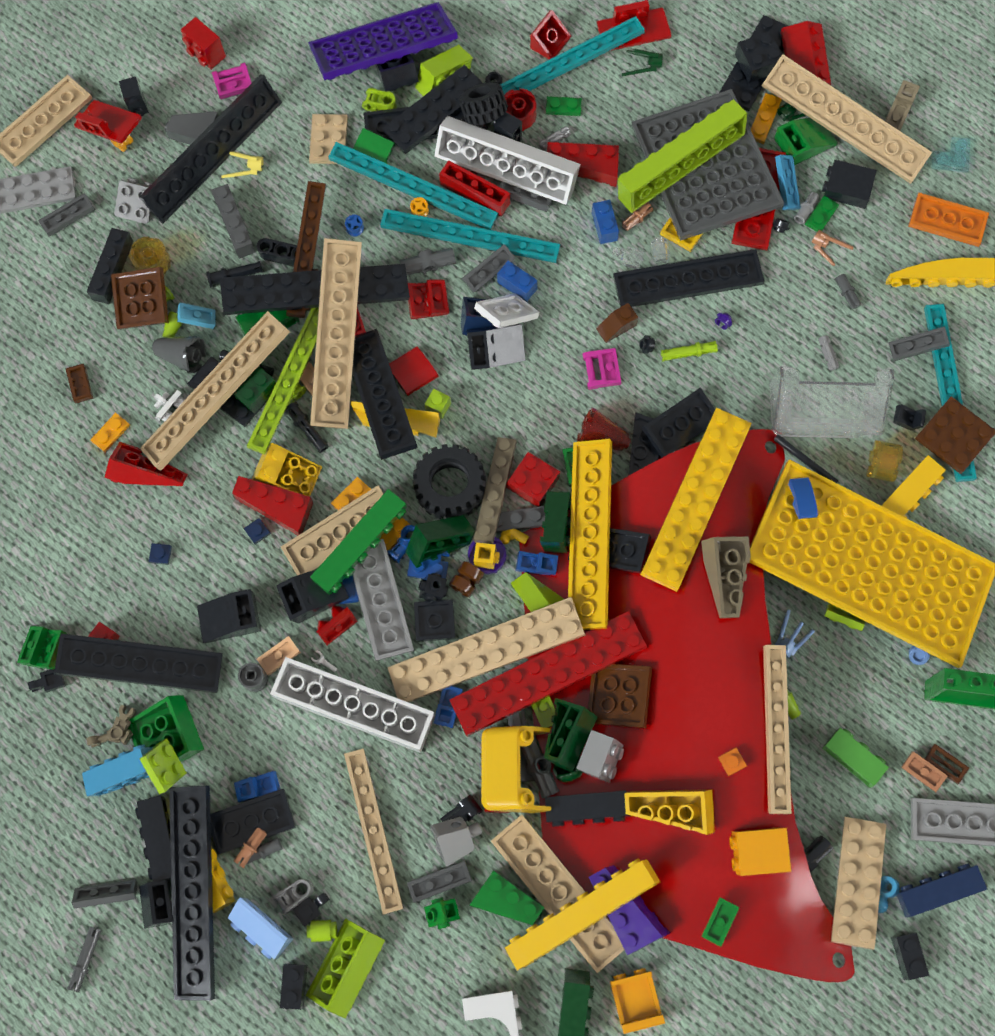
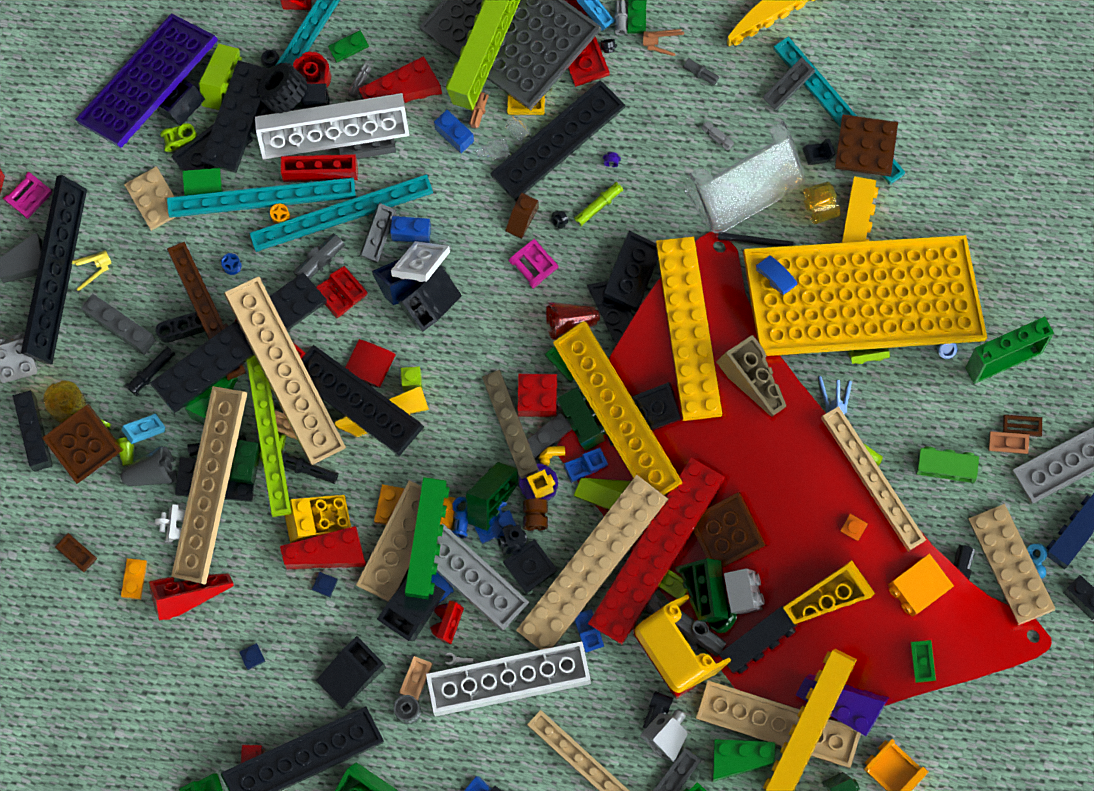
camera: 30 degrees left, 0 degrees up
(449, 458) = (455, 418): black tyre -> none

